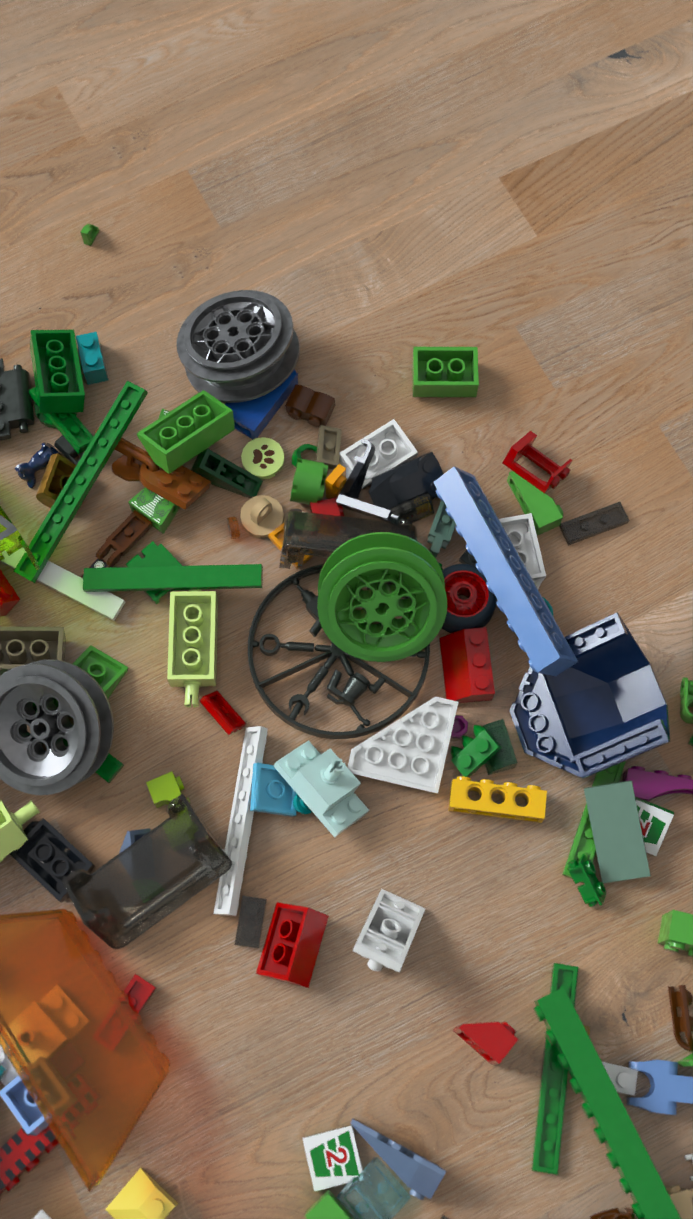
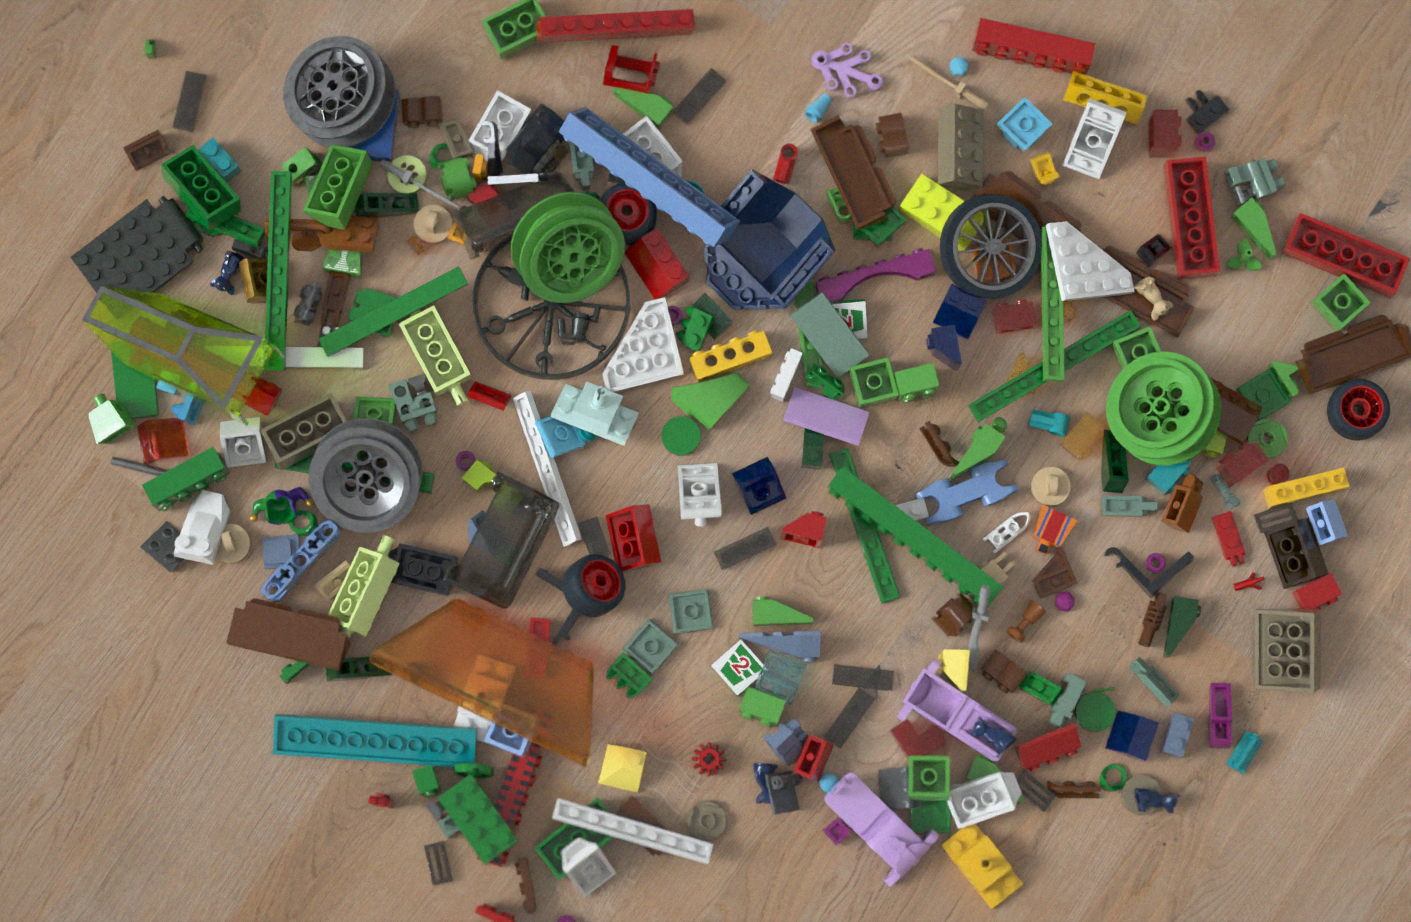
camera: 30 degrees left, 10 degrees up
(30, 316) = (146, 150): none -> reddish brown hinge
(97, 295) = (189, 101): none -> clear smoke plate
(101, 521) = (308, 295): none -> dark grey hinge
(137, 685) = (414, 408): none -> sand green hips
(159, 761) = (465, 454): none -> magenta plate
(163, 395) = (305, 163): none -> bright green torso
(194, 970) = (573, 616): none -> black hinge
(203, 978) = (594, 585): none -> wheel
(207, 1099) = (629, 674): none -> green plate
(247, 1078) = (650, 646): none -> sand green tile
(261, 459) = (406, 177): none -> light grey sword
(312, 1061) = (690, 611): none -> sand green tile
(401, 858) = (680, 435): none -> green tile
(403, 1115) = (771, 613): none -> bright green slope
(408, 1021) = (744, 548): none -> clear smoke plate
(451, 833) = (709, 398): none -> bright green panel
(459, 958) = (759, 485): none -> clear blue slope
(543, 413) = (615, 26): none -> red brick
(544, 938) = (812, 450): none -> dark green slope
(545, 853) = (787, 373): none -> white piece
(571, 919) = (826, 416): none -> lavender tile
(641, 909) = (873, 383): none -> bright green brick
(652, 631) = (785, 165): none -> red piece

